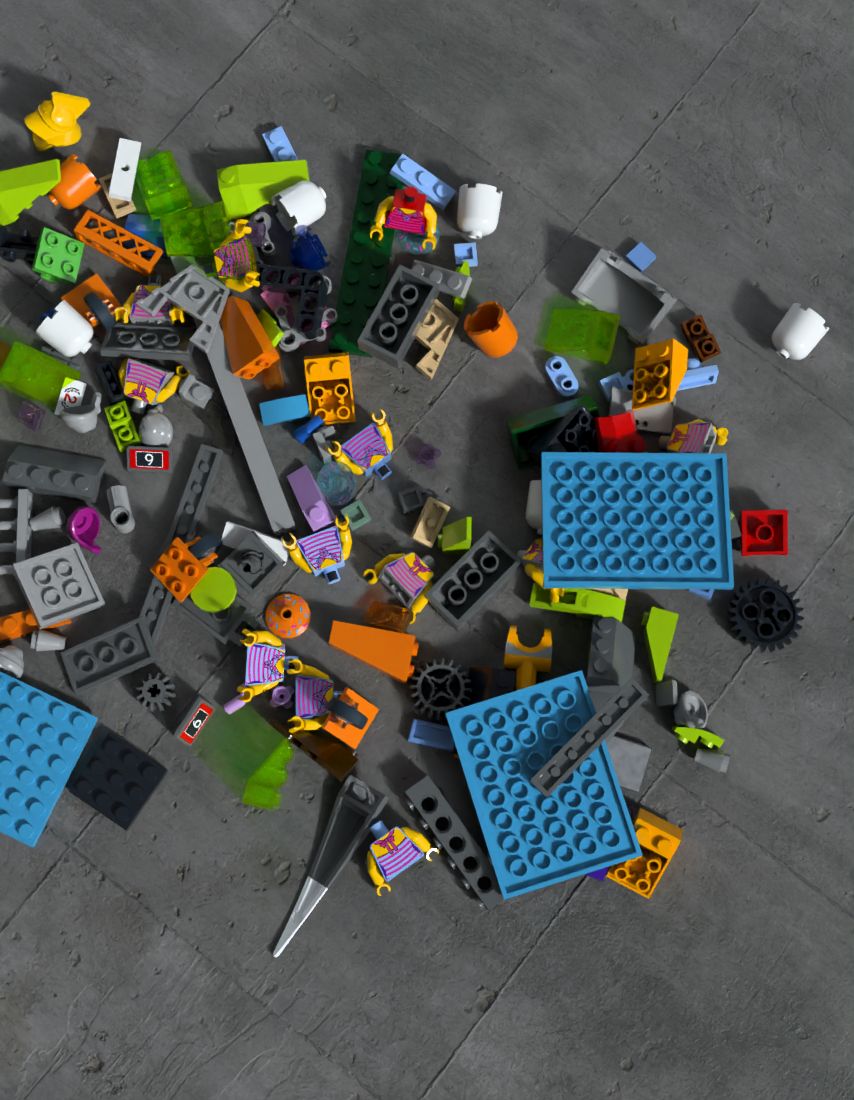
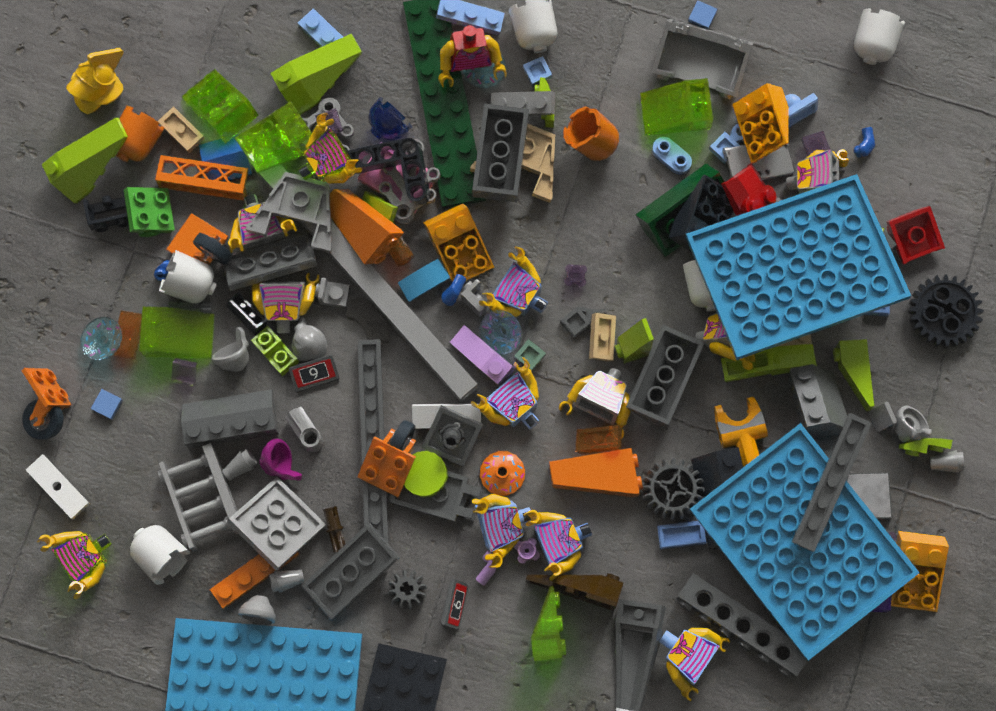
camera: 15 degrees left, 0 degrees up
(71, 396) = (213, 340): white sticker -> none
(111, 609) = (334, 528): none -> dark brown axle
(125, 169) = (179, 94): white tile -> none
(299, 205) = (362, 80): white cylinder -> none
(349, 717) = (599, 546): orange plate -> none
(699, 338) = (786, 73): reddish brown slope -> none
(701, 411) = (815, 142): none -> clear purple plate
(750, 432) = (867, 144): none -> blue arm

